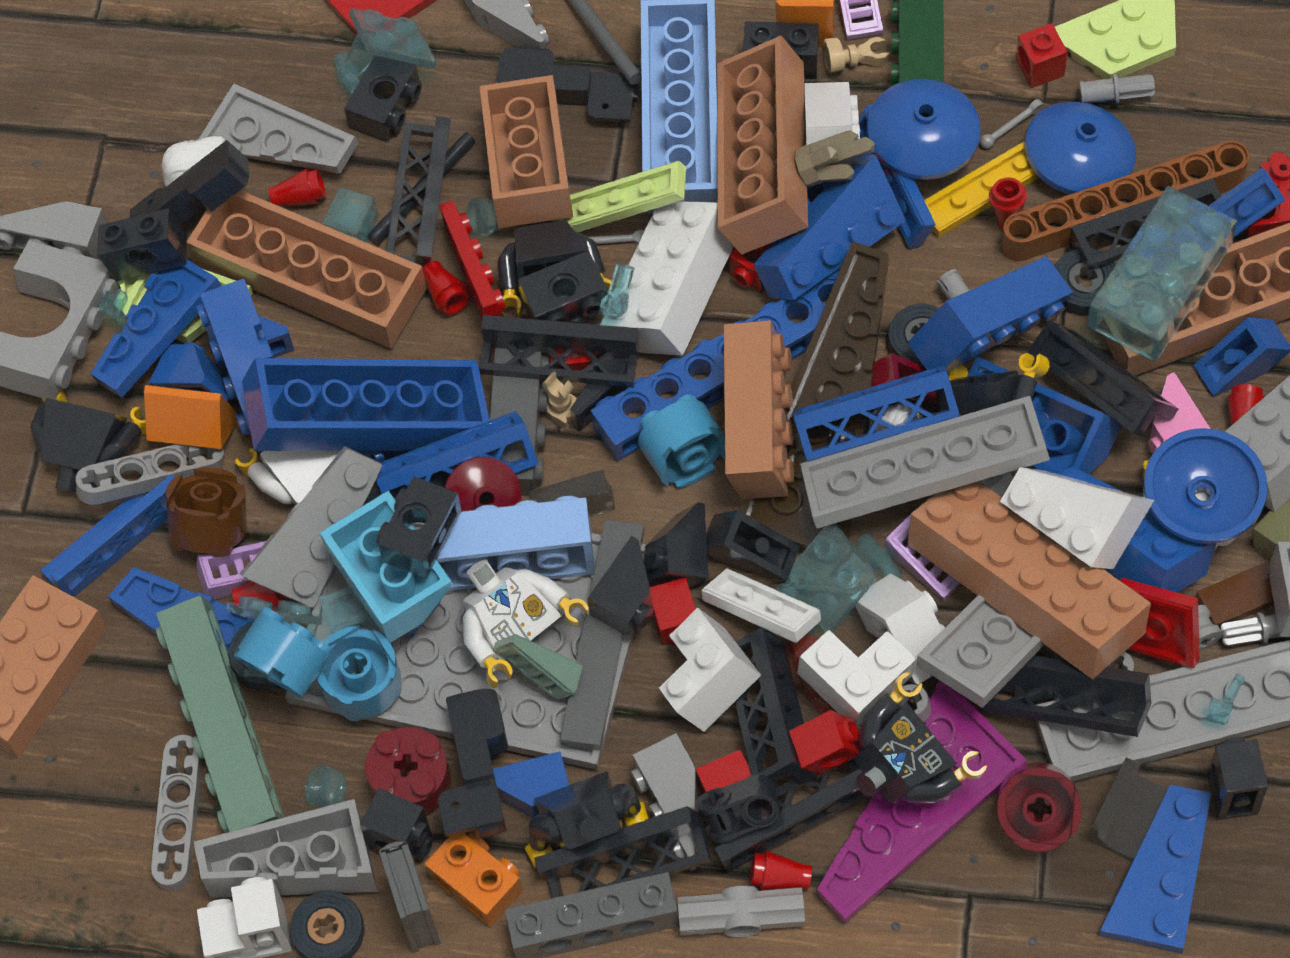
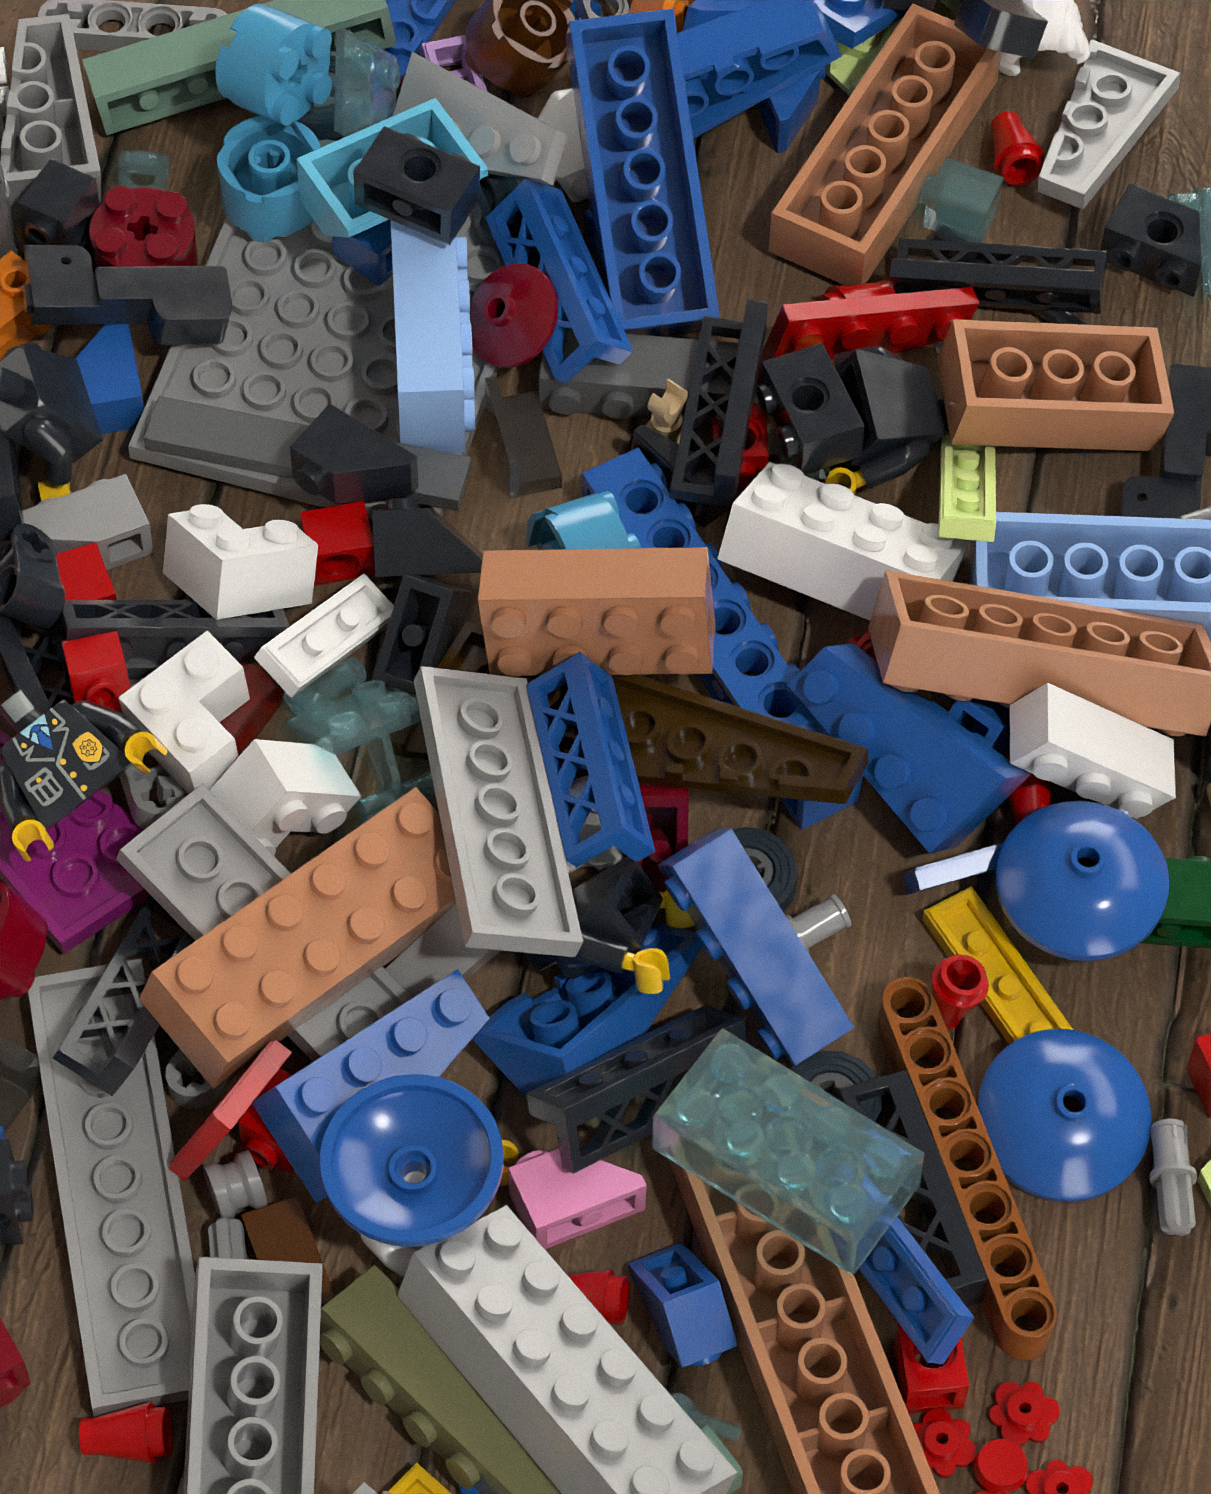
camera: 85 degrees right, 5 degrees down
(510, 605) = (328, 330): white torso -> none
(544, 667) = (253, 367): sand green slope -> none
(617, 300) = (799, 465): clear light blue arm -> none
(635, 237) = (928, 468): light grey hinge -> none
(831, 158) = (996, 703): dark tan rock -> none
(1034, 108) = (1087, 996): light grey hinge -> none
(1078, 515) = (380, 977): white wedge -> none
(1220, 710) = (93, 1195): clear light blue hand -> none

